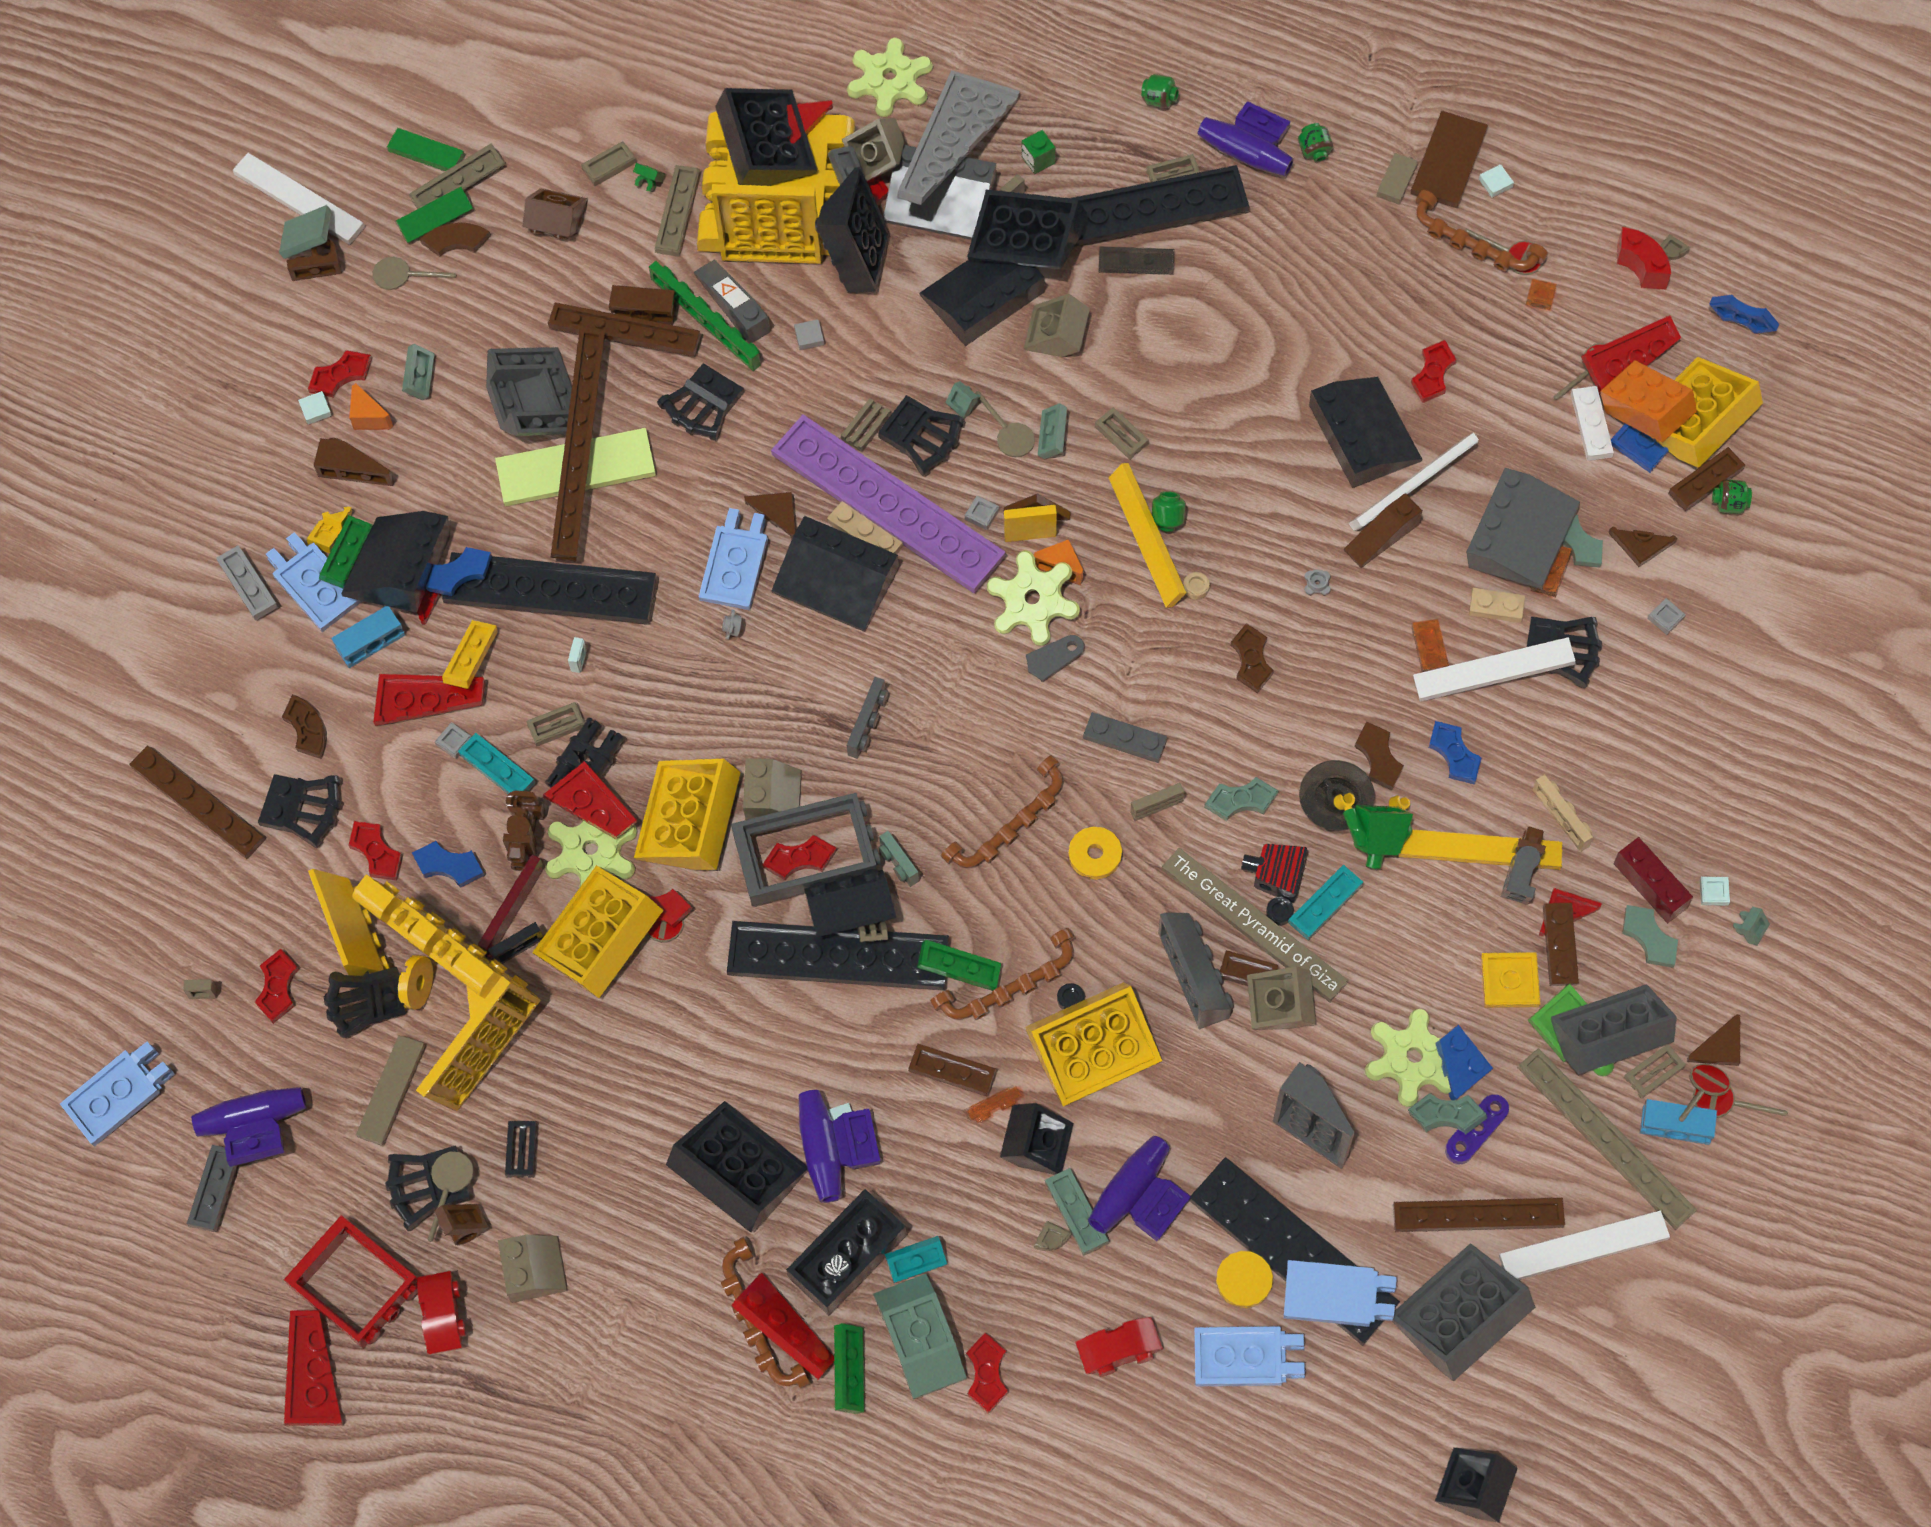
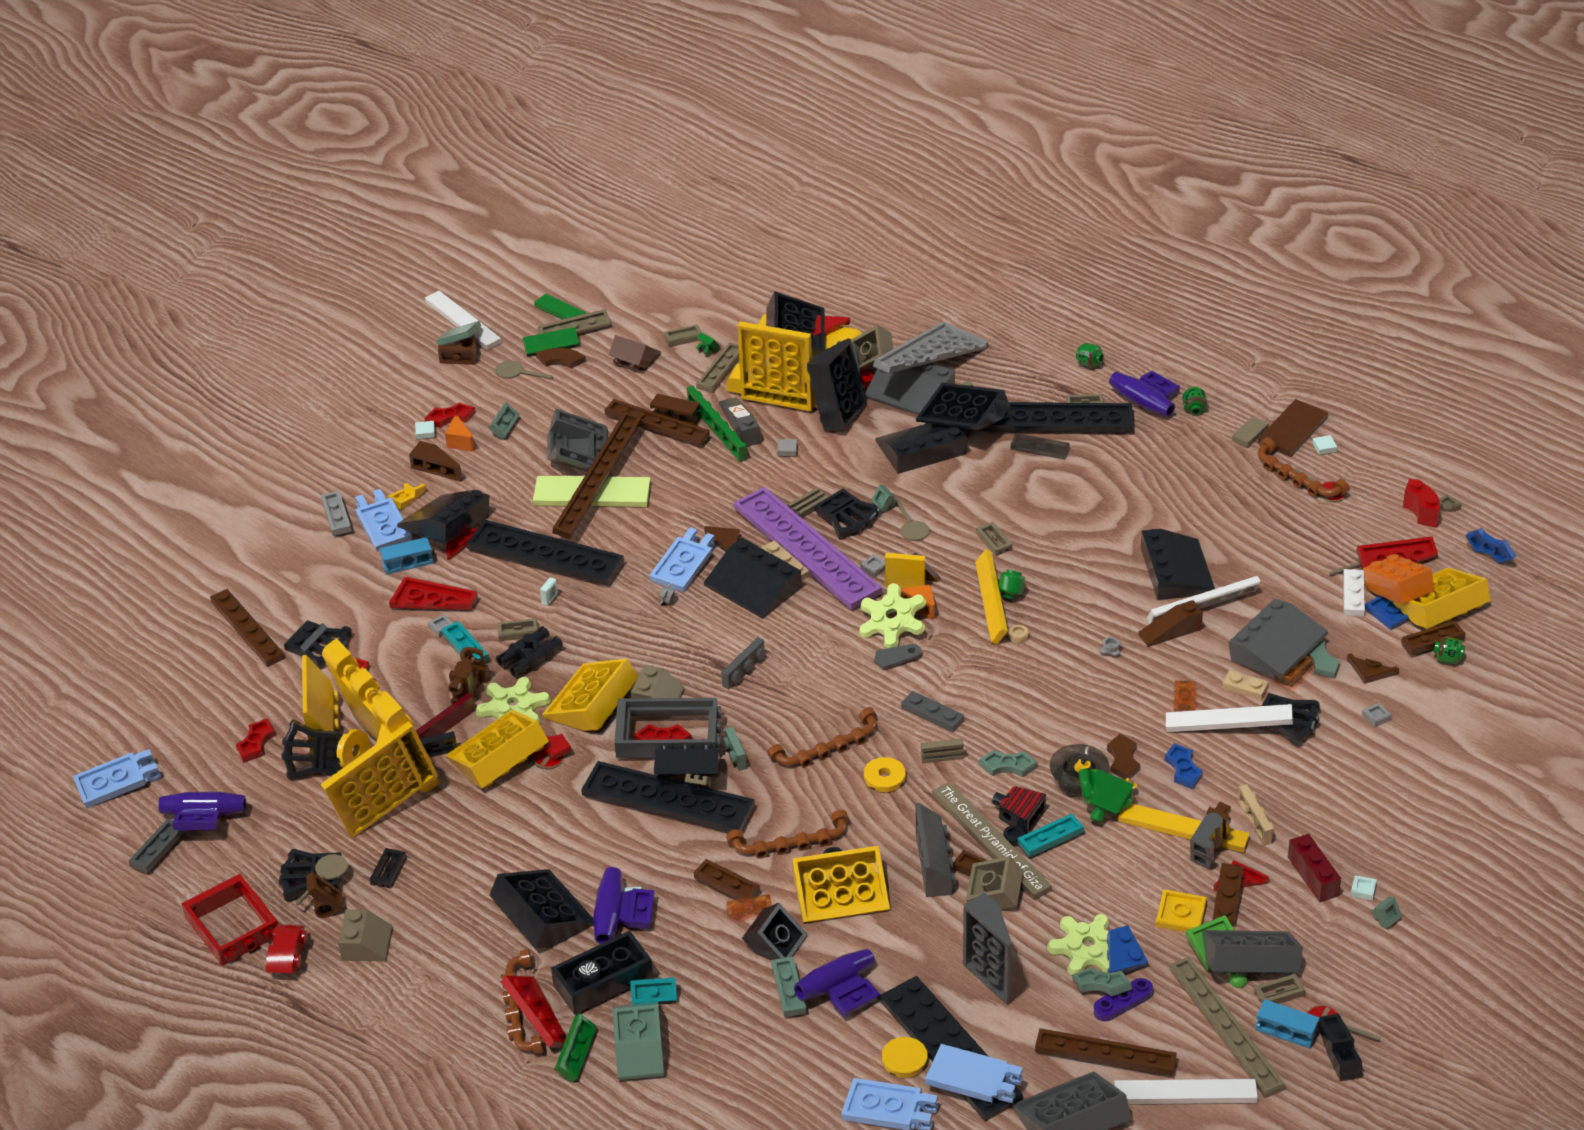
camera: 15 degrees right, 25 degrees down
(200, 989) = (200, 729): dark tan tile -> none
(307, 726) = (342, 600): reddish brown tile -> none
(309, 1379) = (174, 971): red wing -> none
(345, 551) = (410, 505): green tile -> none
(390, 1090) = (303, 820): dark tan tile -> none
(458, 866) = (413, 697): blue tile -> none
(469, 566) = (493, 527): blue tile -> none
(469, 654) = (472, 576): yellow plate -> none
(591, 801) = (523, 670): red wing -> none
(711, 389) = (703, 464): black plate -> none
(886, 90) = (907, 317): yellowish green plate -> none
(959, 965) = (754, 815): green plate -> none
(987, 1387) = (678, 1083): red tile -> none
(1038, 151) = (989, 373): green brick -> none
(1051, 1237) = (763, 1001): dark tan tile -> none
(1052, 431) = (942, 527): sand green plate -> none
(1057, 326) = (968, 470): dark tan slope -> none
(1128, 1343) = (789, 1074): red brick -> none
(1254, 669) = (1045, 689): reddish brown tile -> none
(1430, 381) = (1238, 546): red tile -> none
(1541, 294) = (1337, 511): clear orange plate -> none
(1658, 946) = (1298, 900): sand green tile -> none
(1708, 1080) = (1318, 1002): piece -> none
(1721, 1047) = (1337, 986): reddish brown tile -> none
(1746, 1138) = (1340, 1047): none -> black slope

